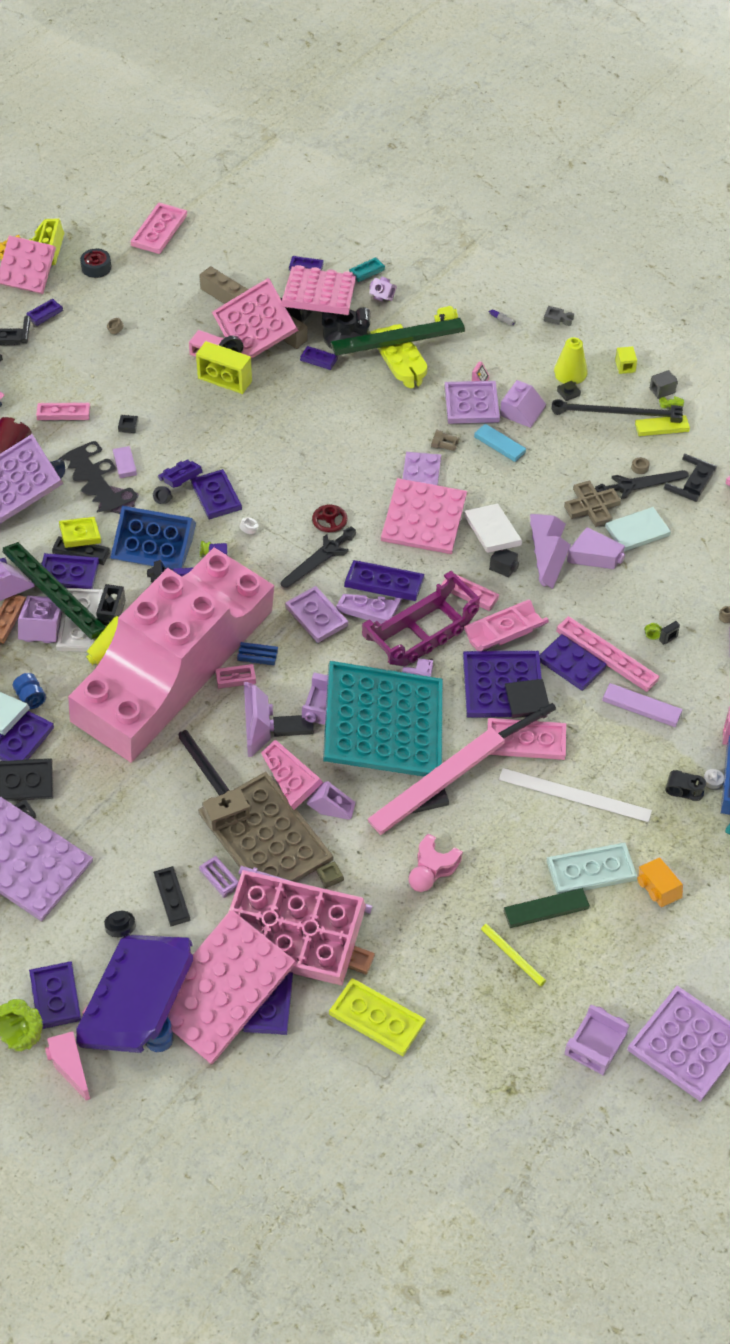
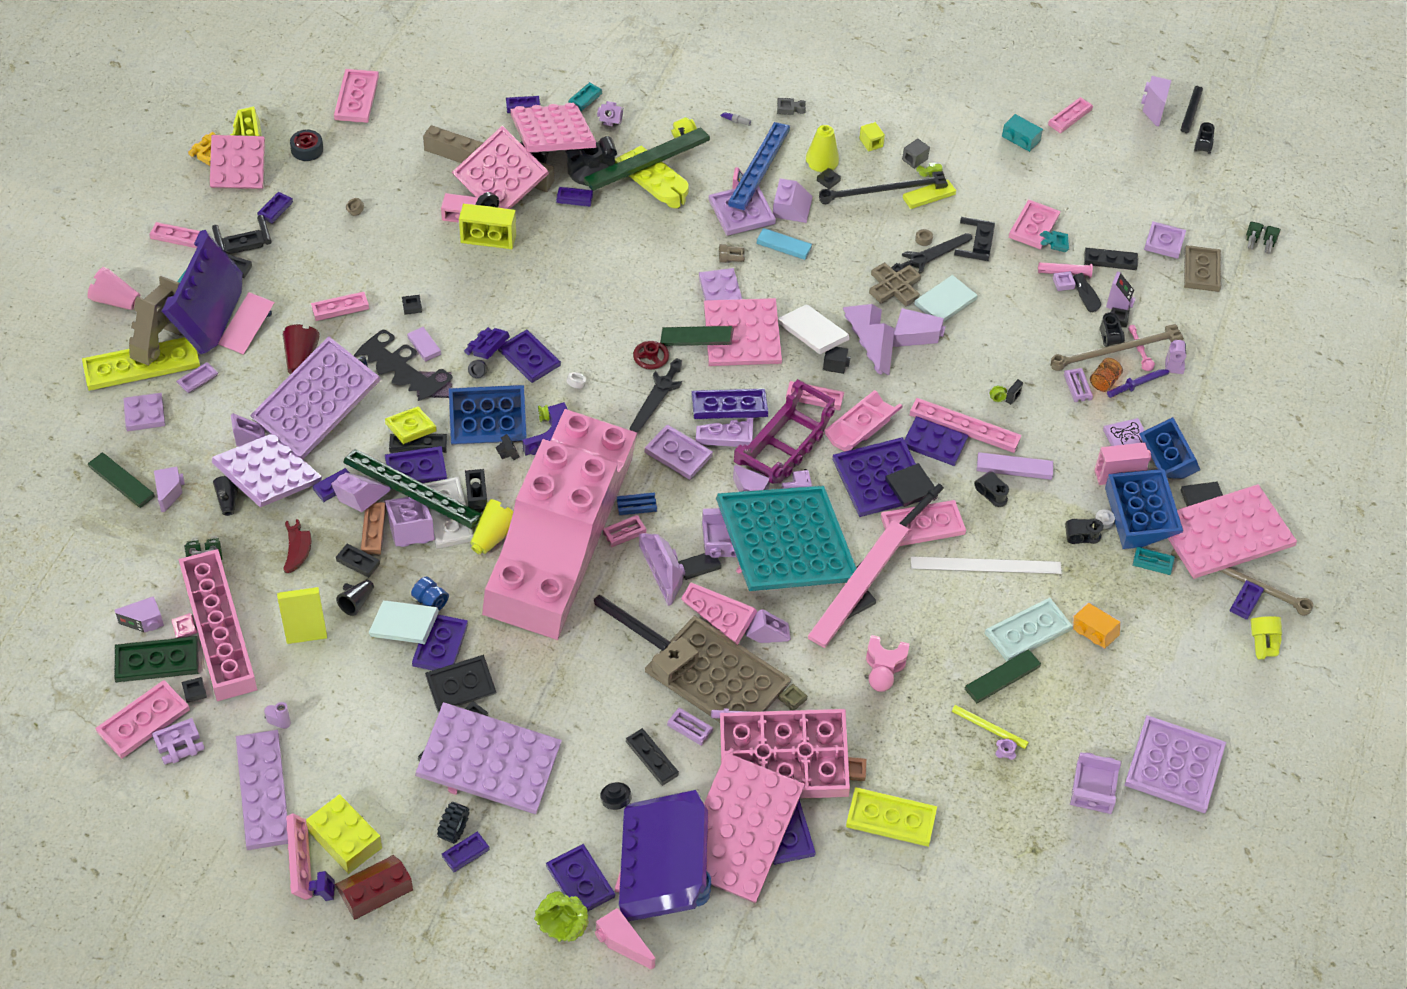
camera: 20 degrees left, 0 degrees up
(372, 656) = (748, 480): none -> lavender slope
(377, 509) = (697, 335): none -> dark green tile
(503, 365) = (759, 166): none -> blue tile
(522, 976) = (1006, 744): none -> lavender plate
(609, 722) = (992, 489): none -> black piece

